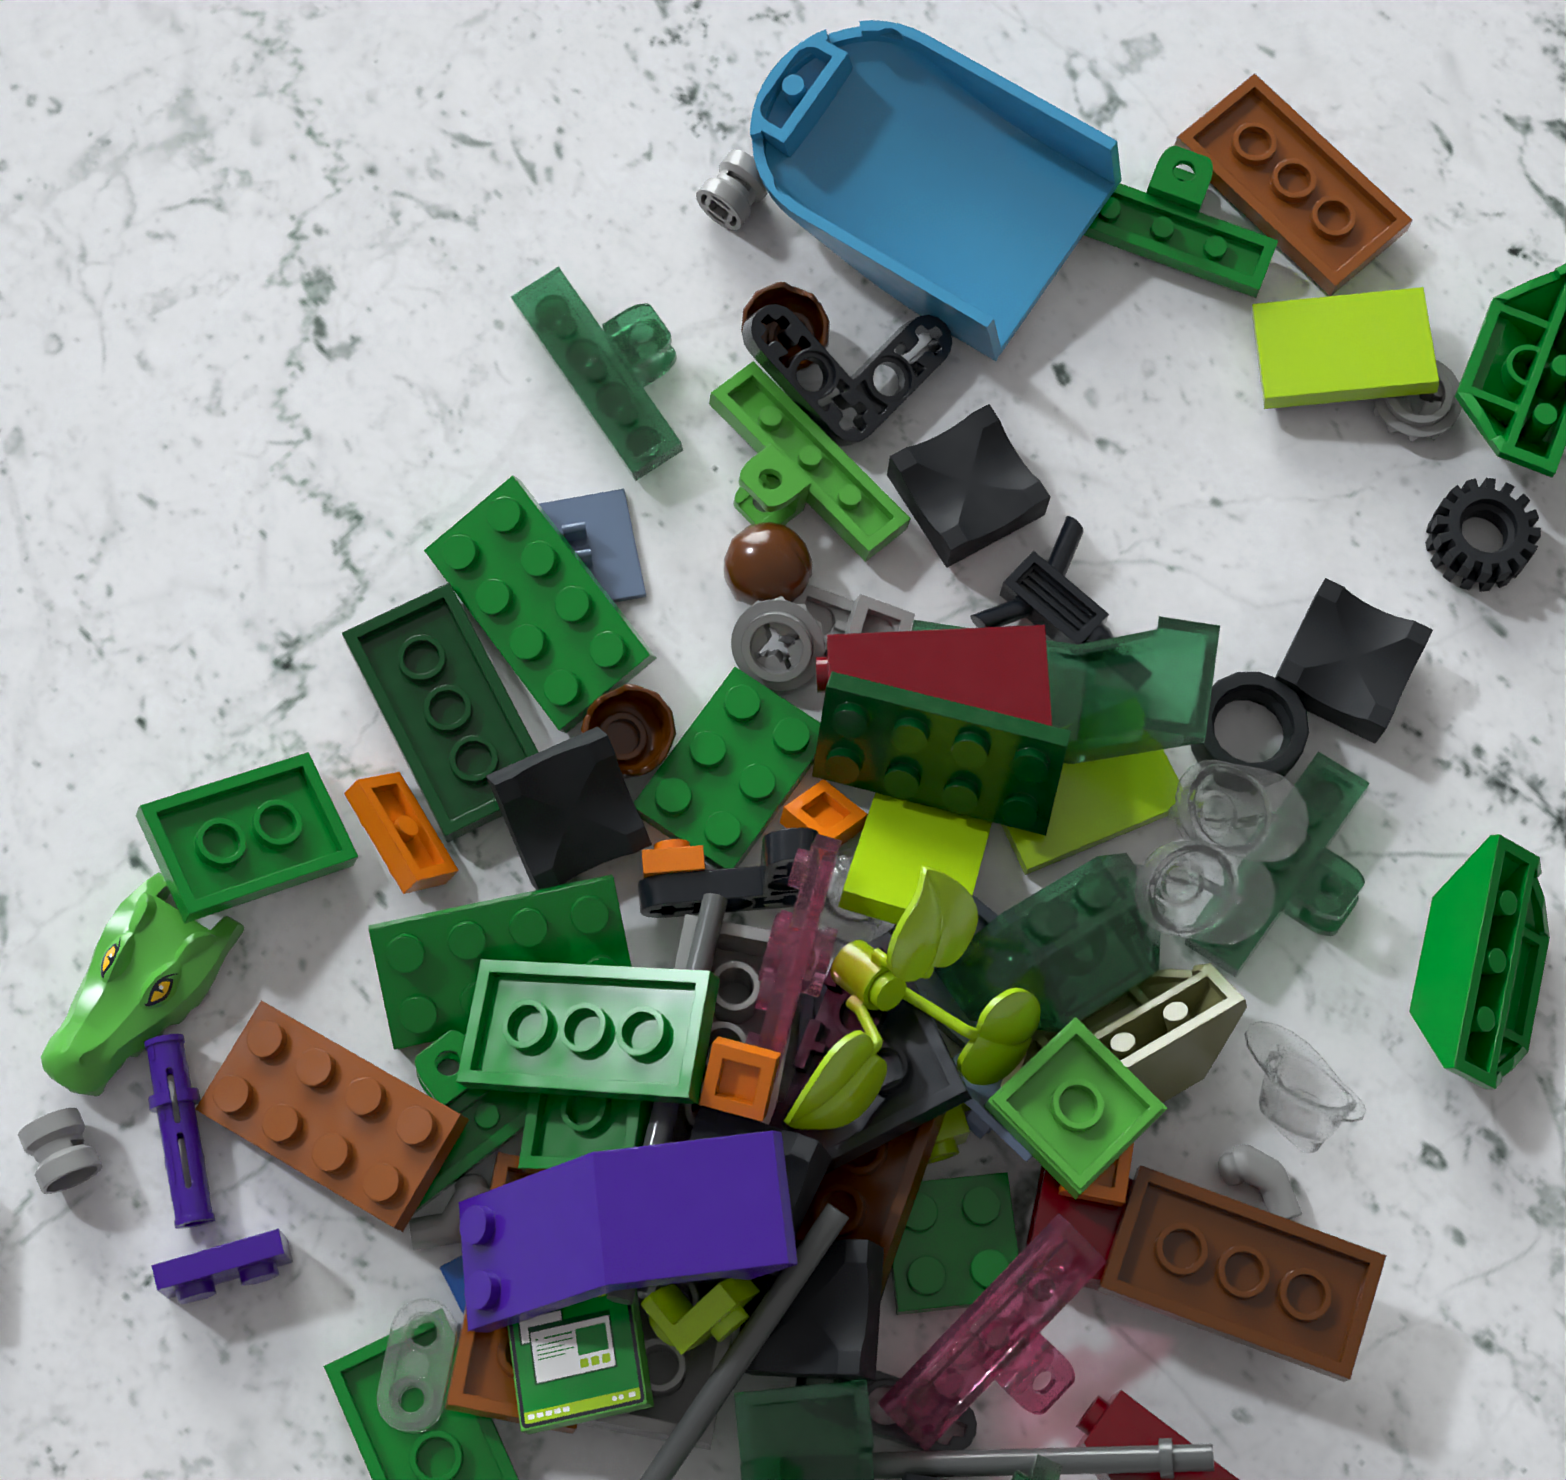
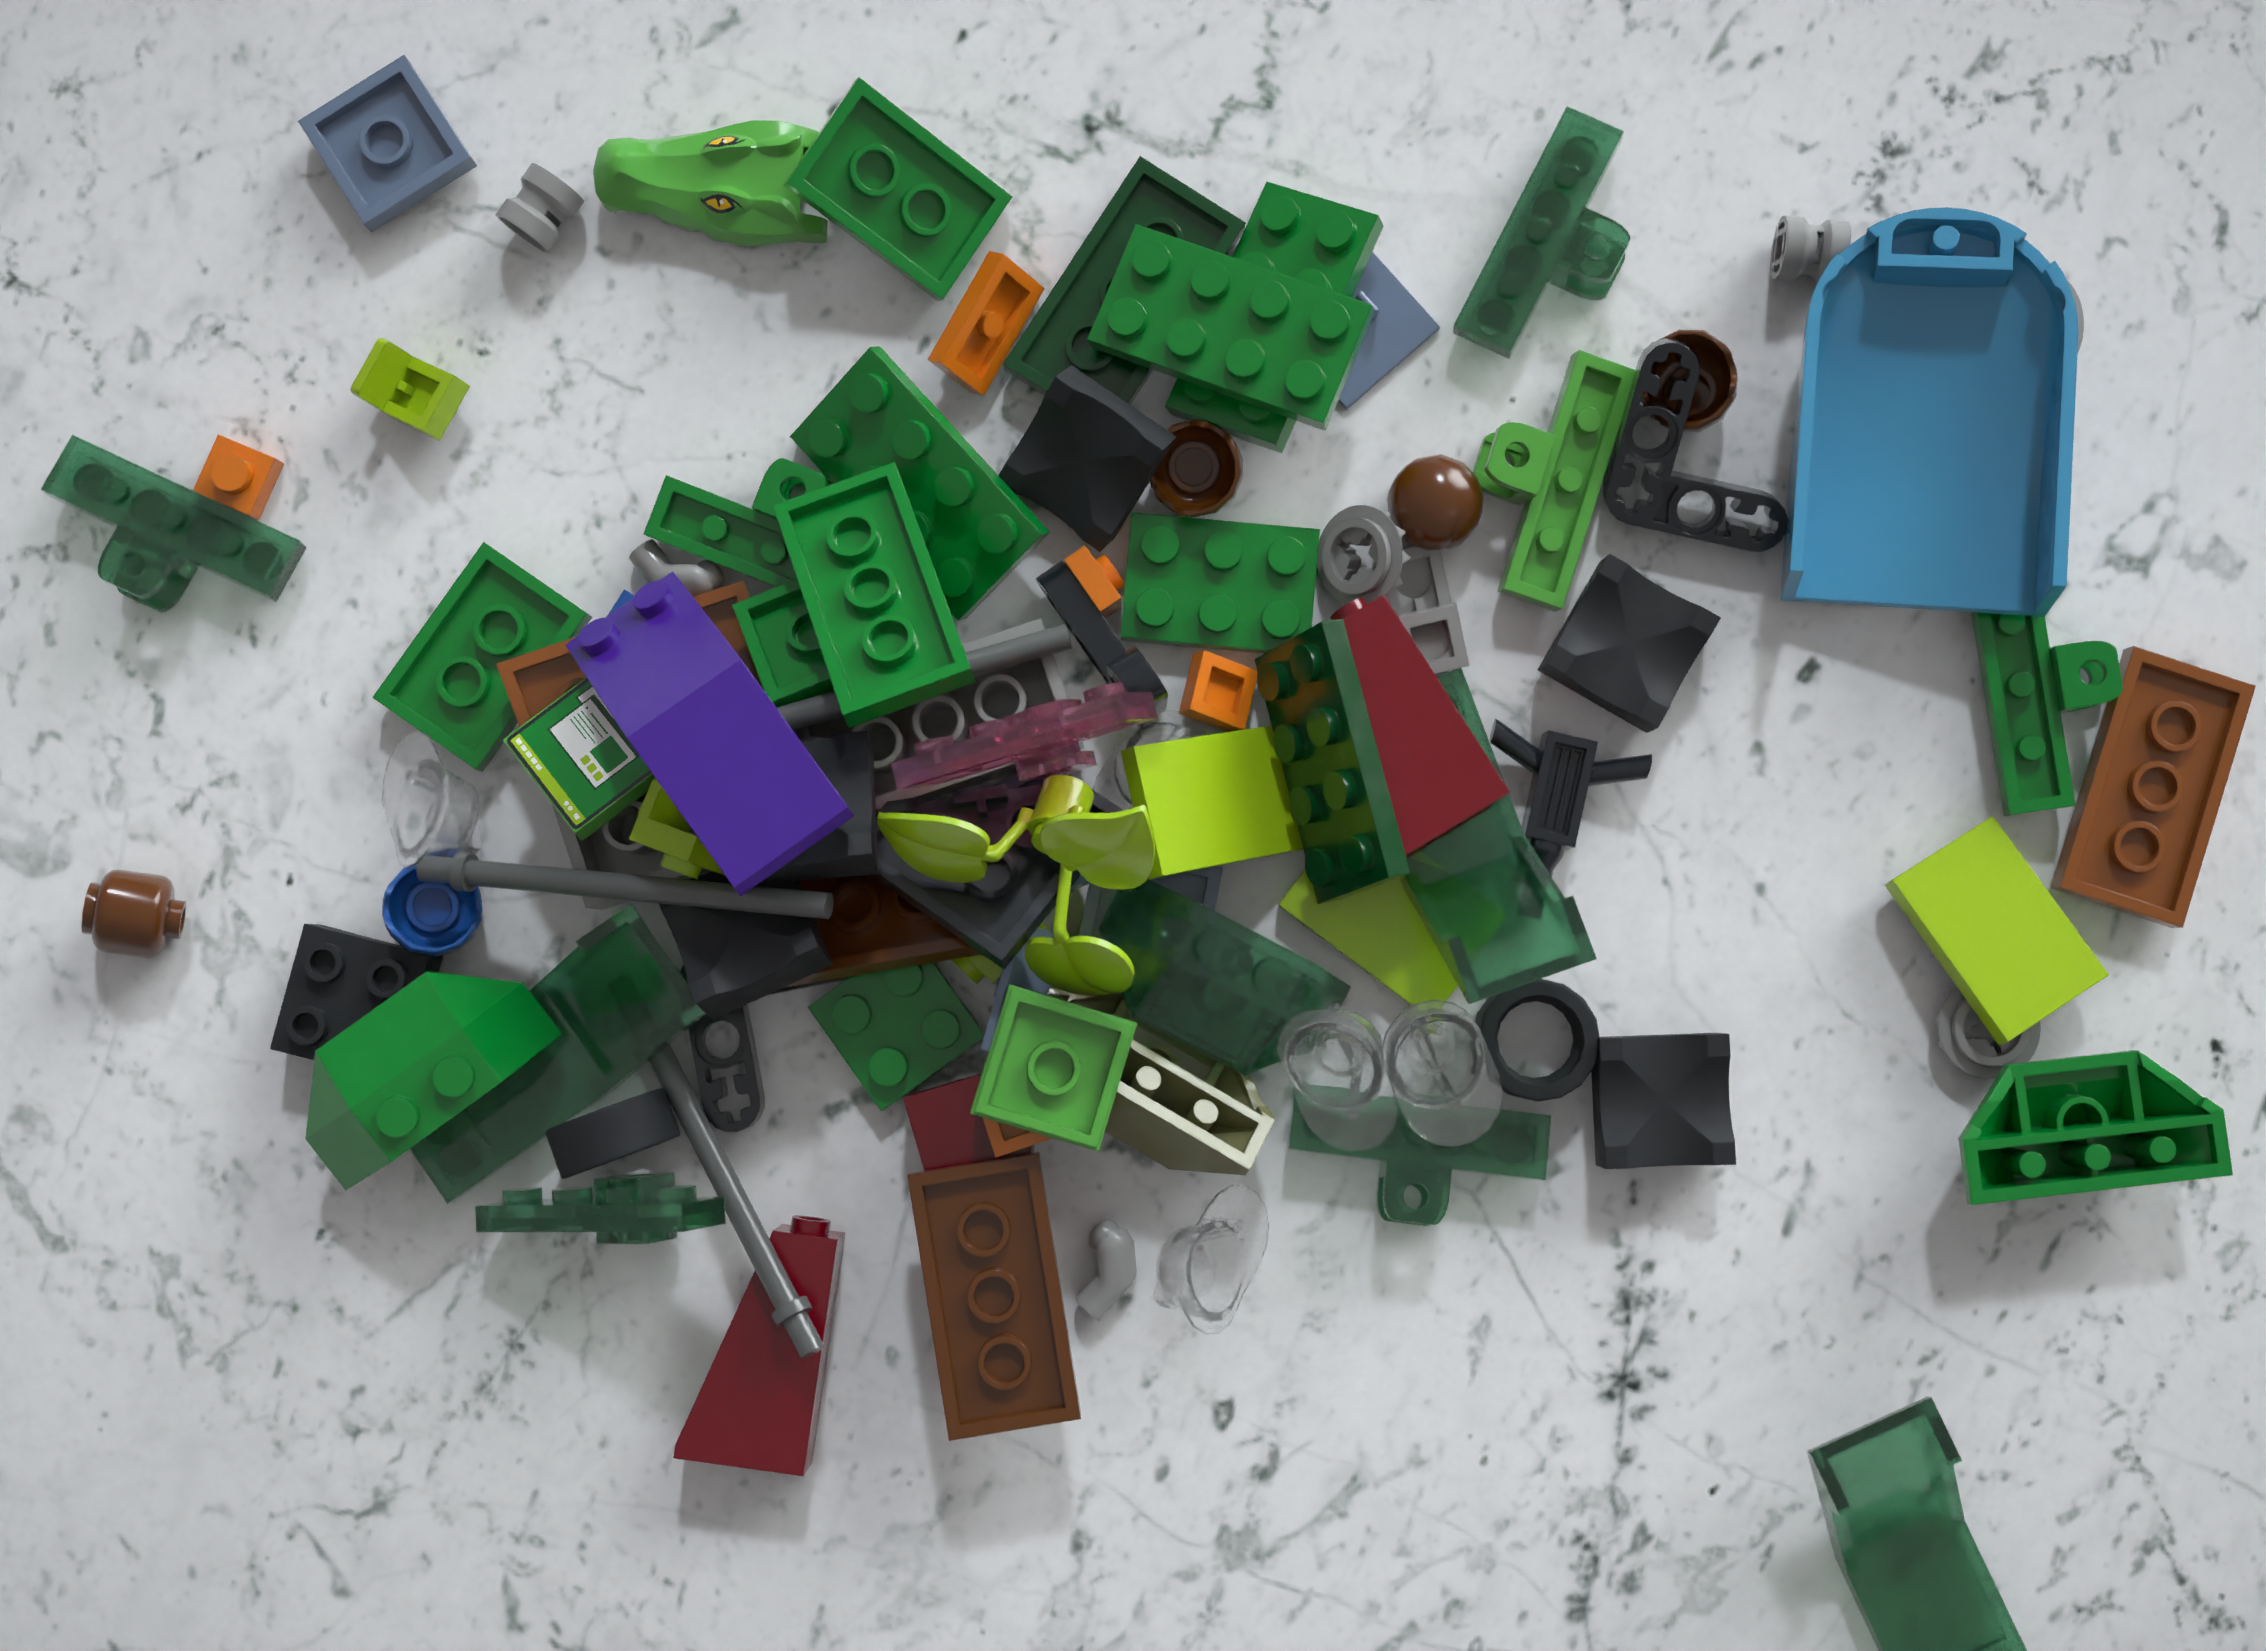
camera: 65 degrees right, 15 degrees up
(147, 1356) = (409, 389): none -> lime bracket
(167, 1058) = (616, 297): dark purple pin -> none
(196, 1274) = (537, 425): dark purple plate -> none
(332, 1115) = (694, 418): dark orange plate -> none
(417, 1366) = (521, 617): clear plate -> none
(532, 635) = (1231, 326): none -> green plate
(739, 1078) = (891, 751): orange plate -> none
(999, 1339) = (819, 1110): clear pink plate -> none
(1483, 963) = (1423, 1375): green wedge -> none
(1499, 509) = (1912, 1171): black tyre -> none

